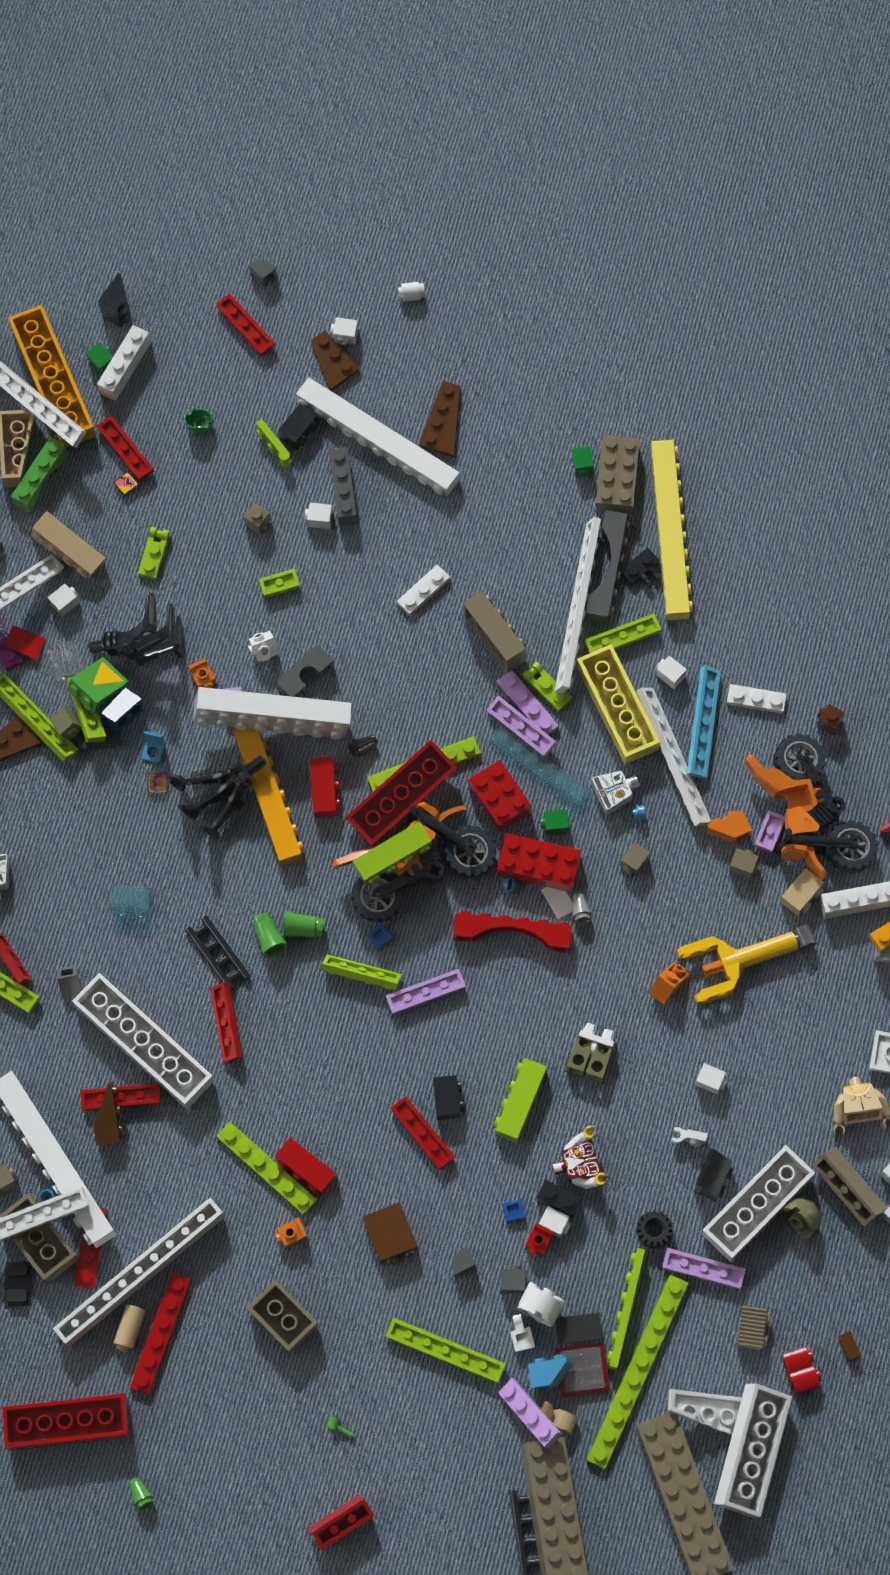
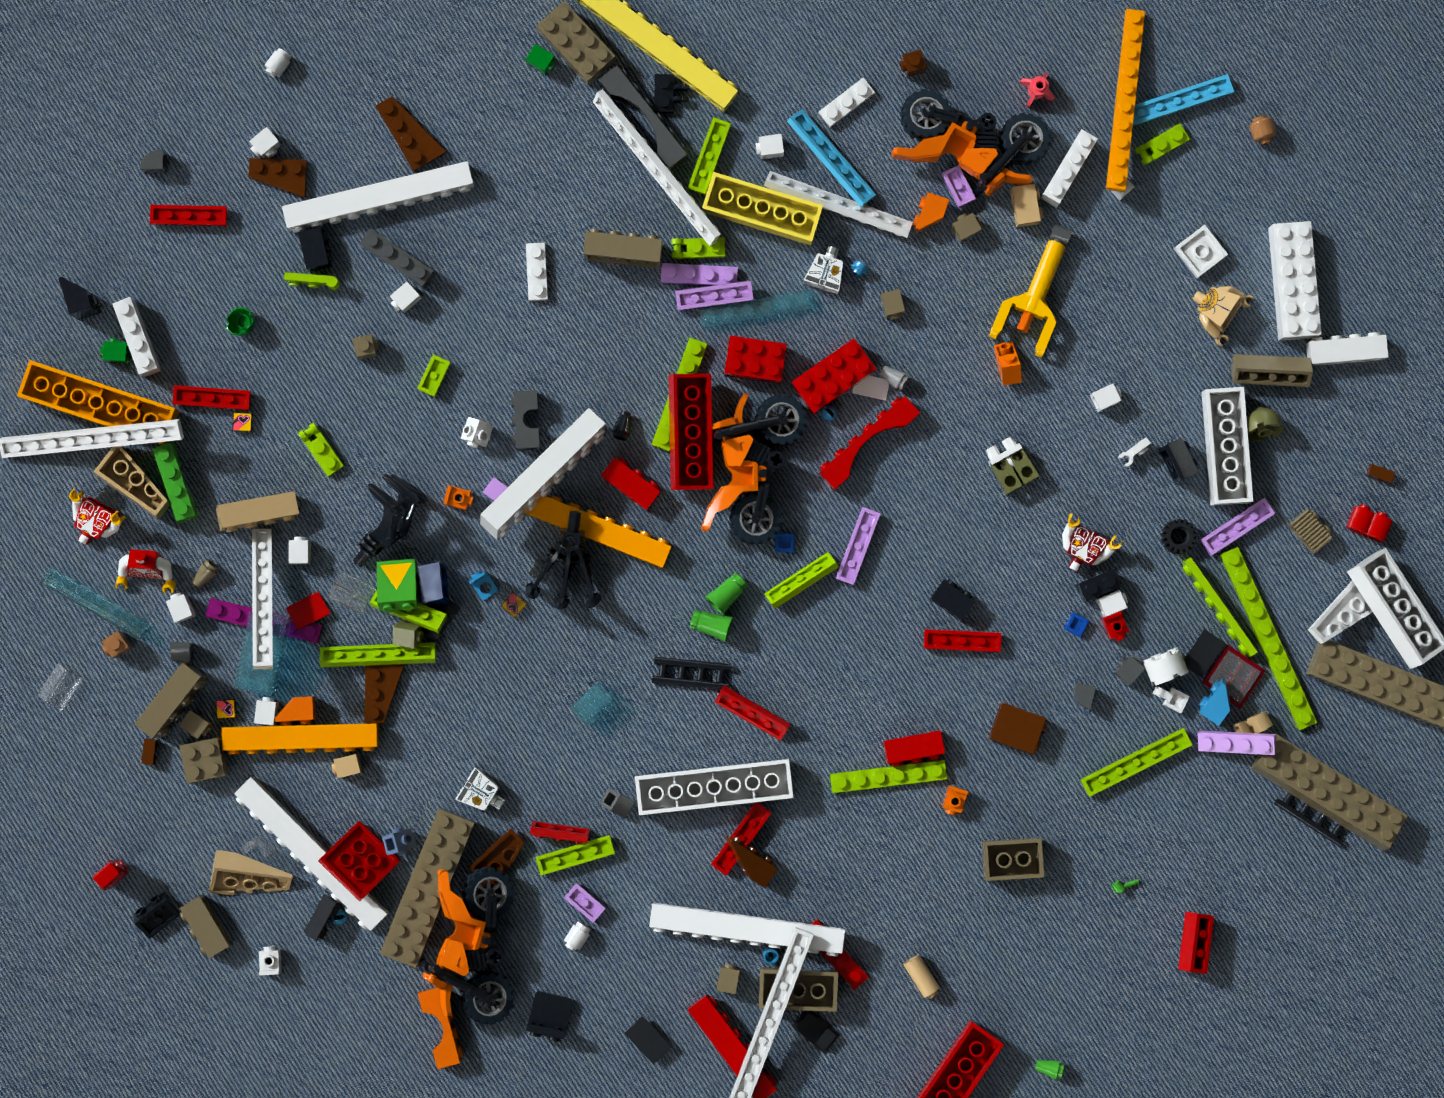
camera: 55 degrees left, 15 degrees up
(139, 1272) = (888, 936): white brick -> none
(160, 1333) = (944, 956): red plate -> none
(392, 853) = (739, 481): lime brick -> none
(520, 1101) = (1001, 548): lime brick -> none
(555, 822) = (812, 336): green brick -> none

